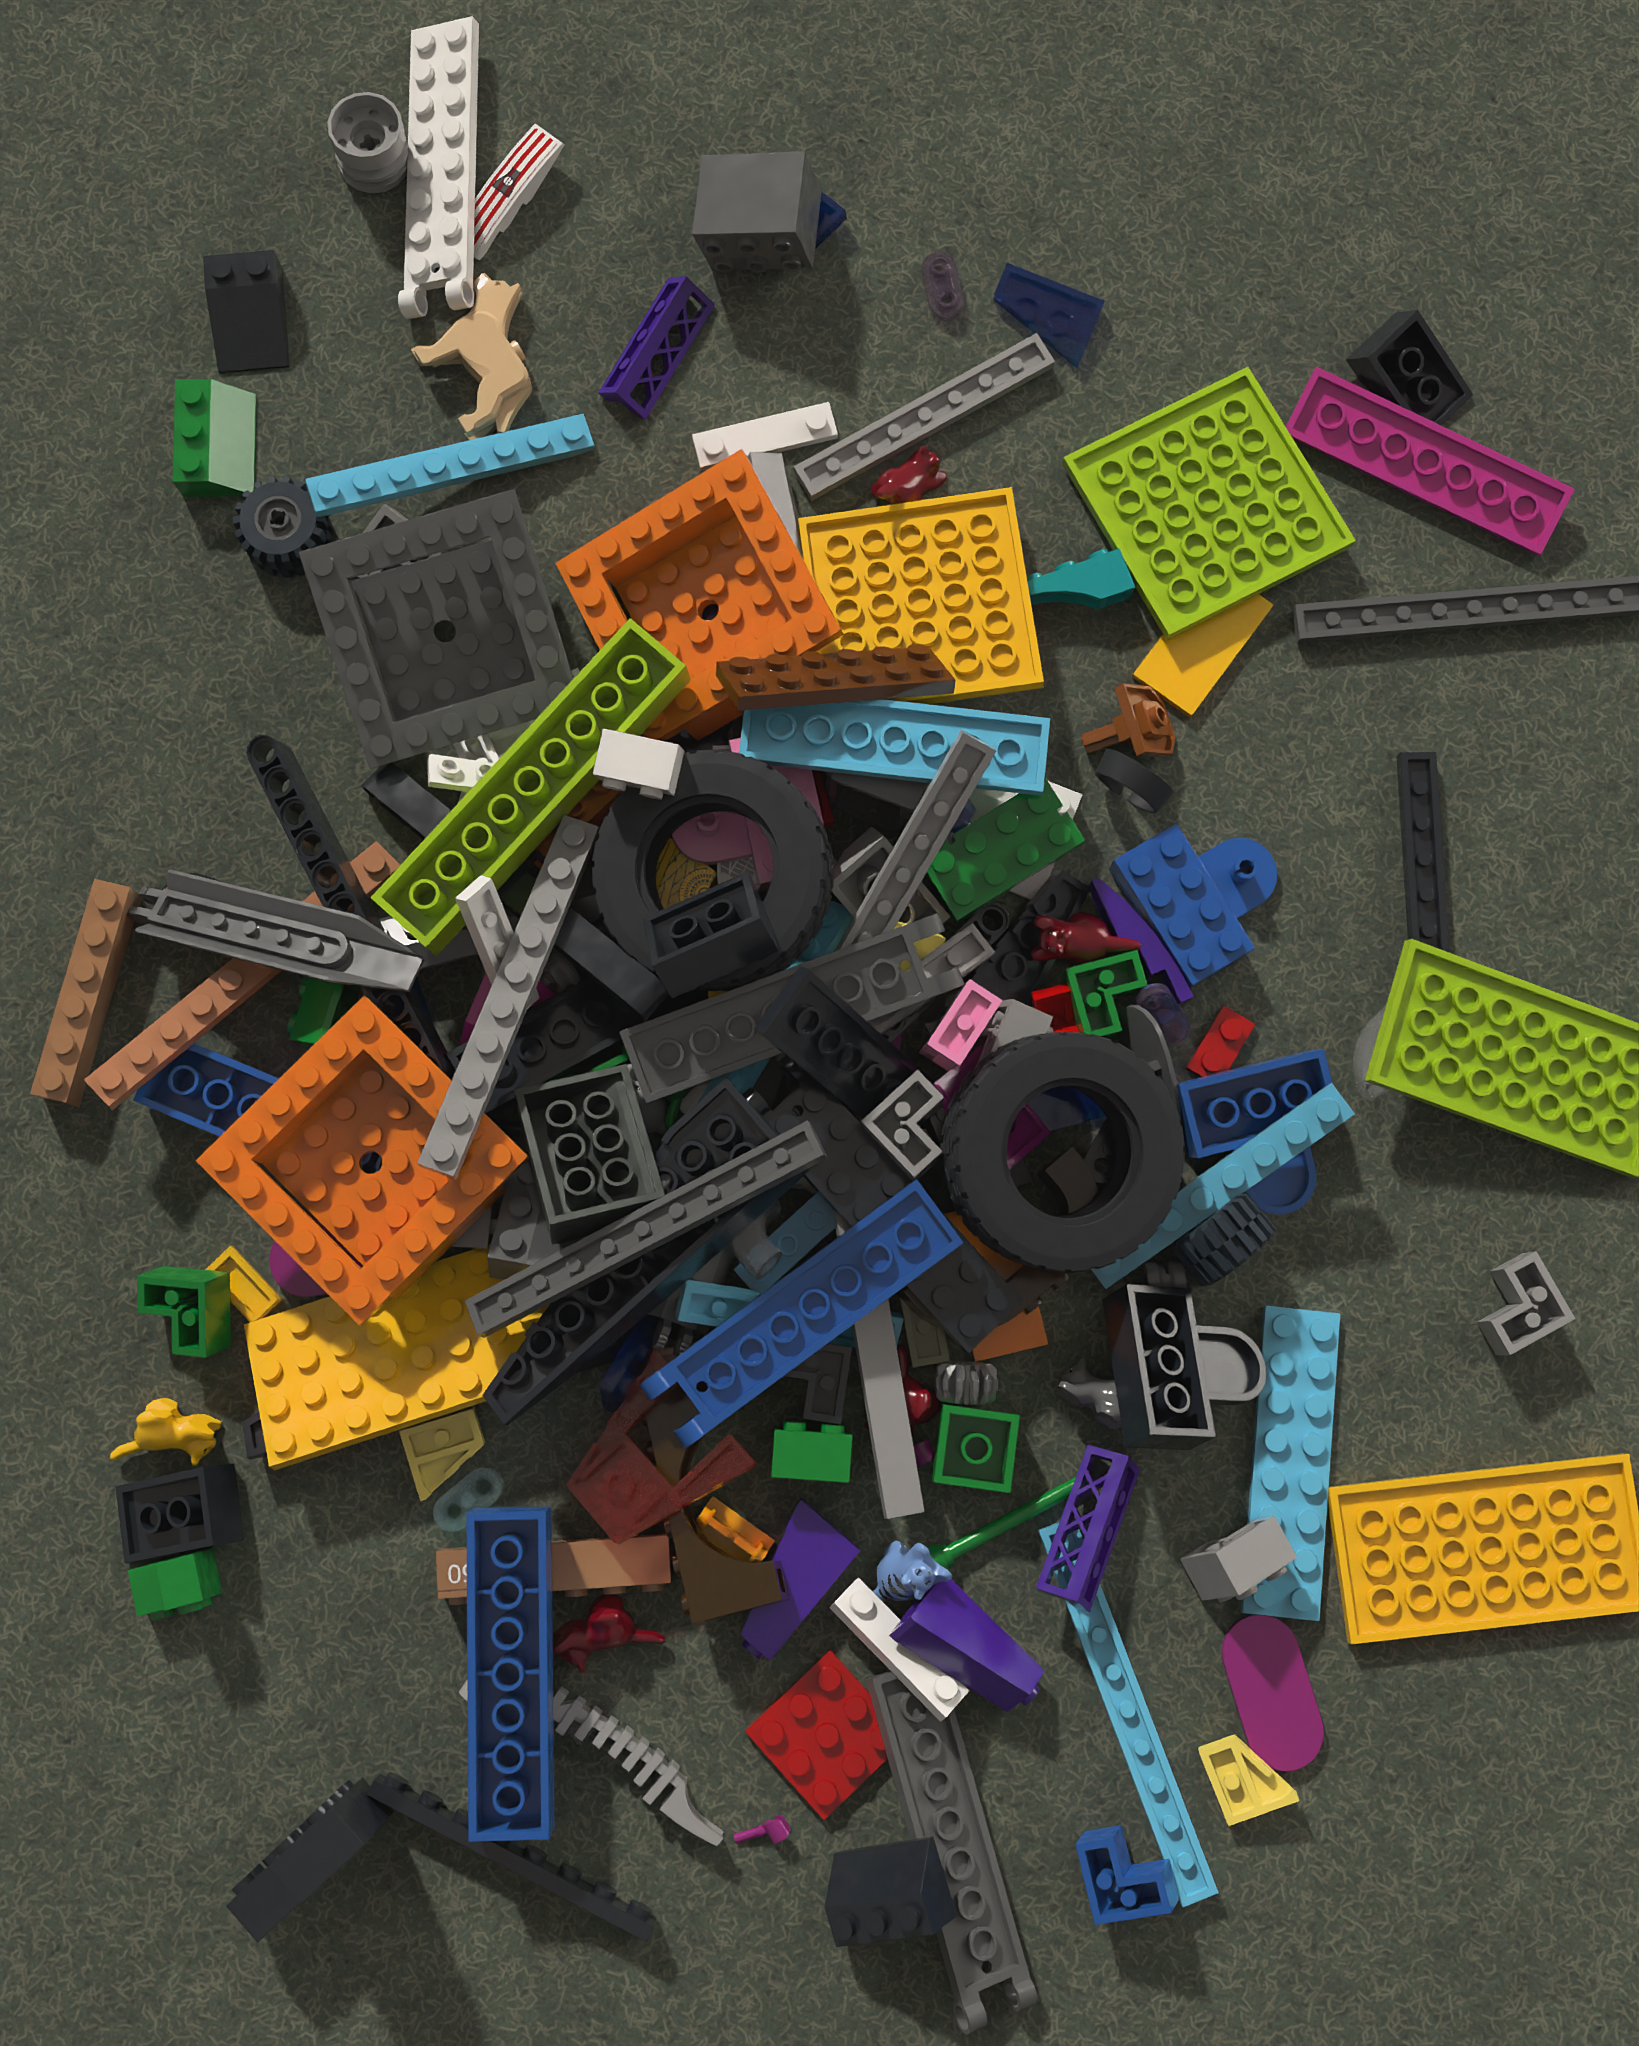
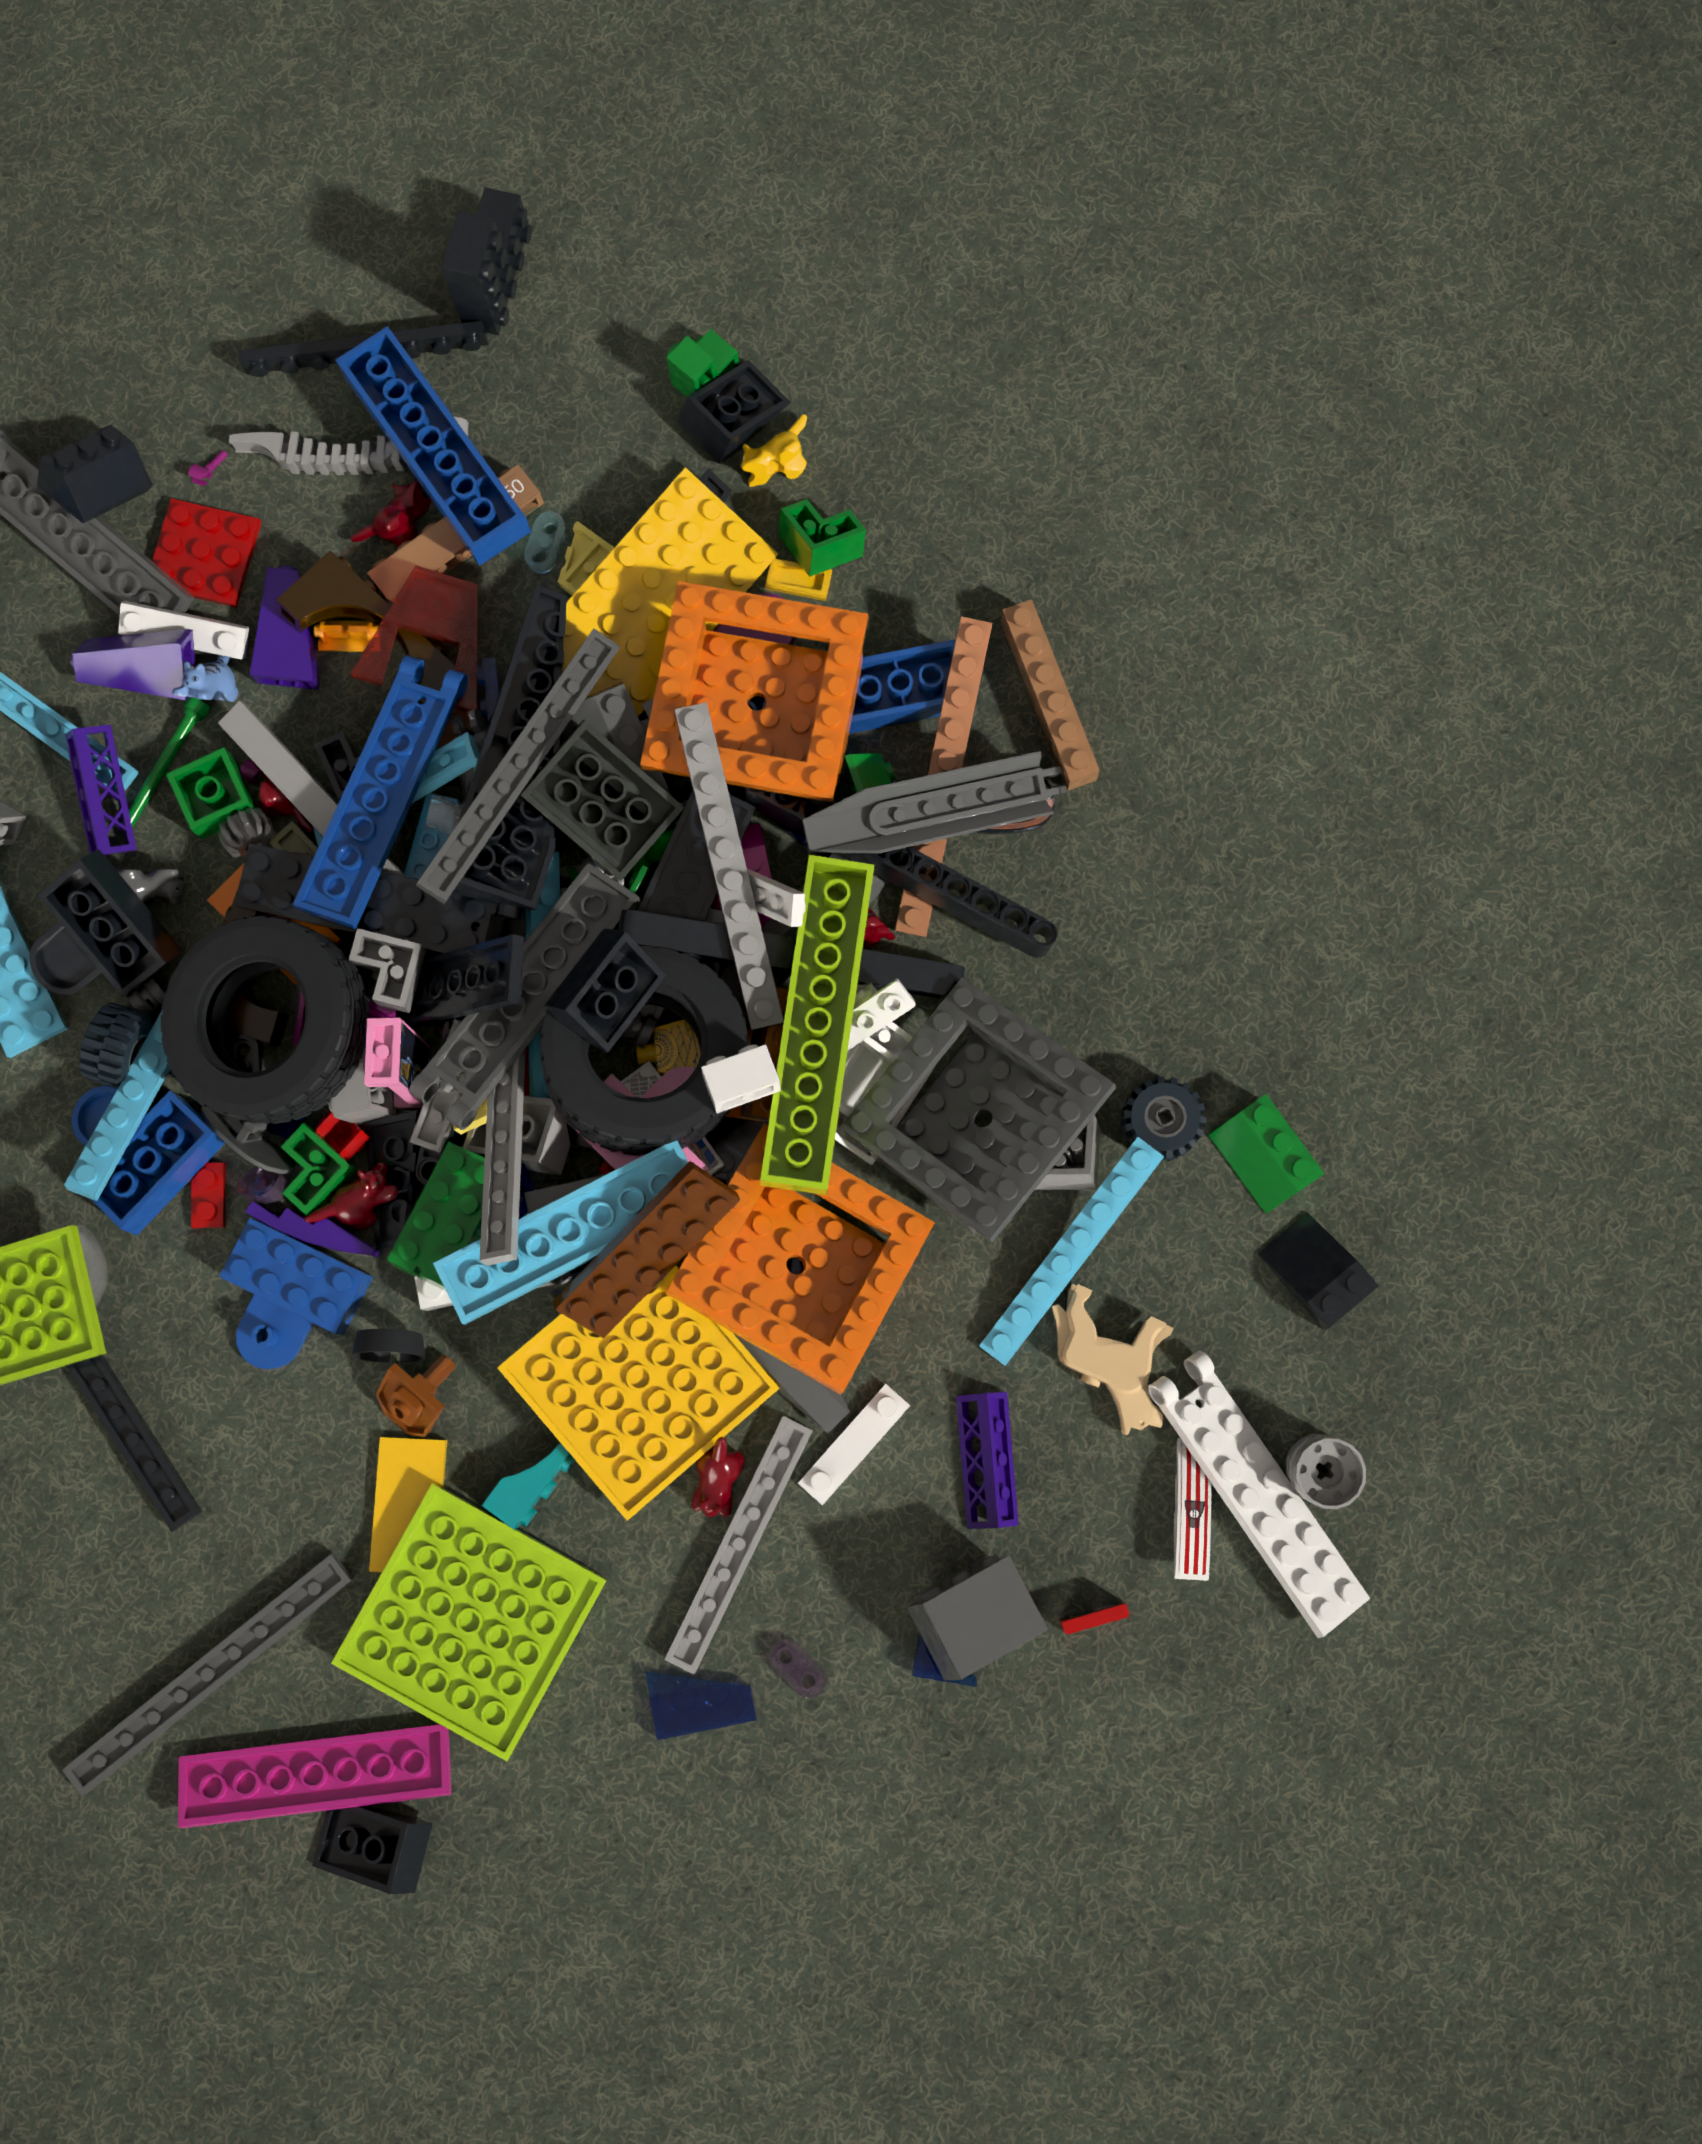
camera: 155 degrees right, 0 degrees up
(656, 160) = (1094, 1617): none -> red tile
(812, 1453) = (323, 712): green brick -> none

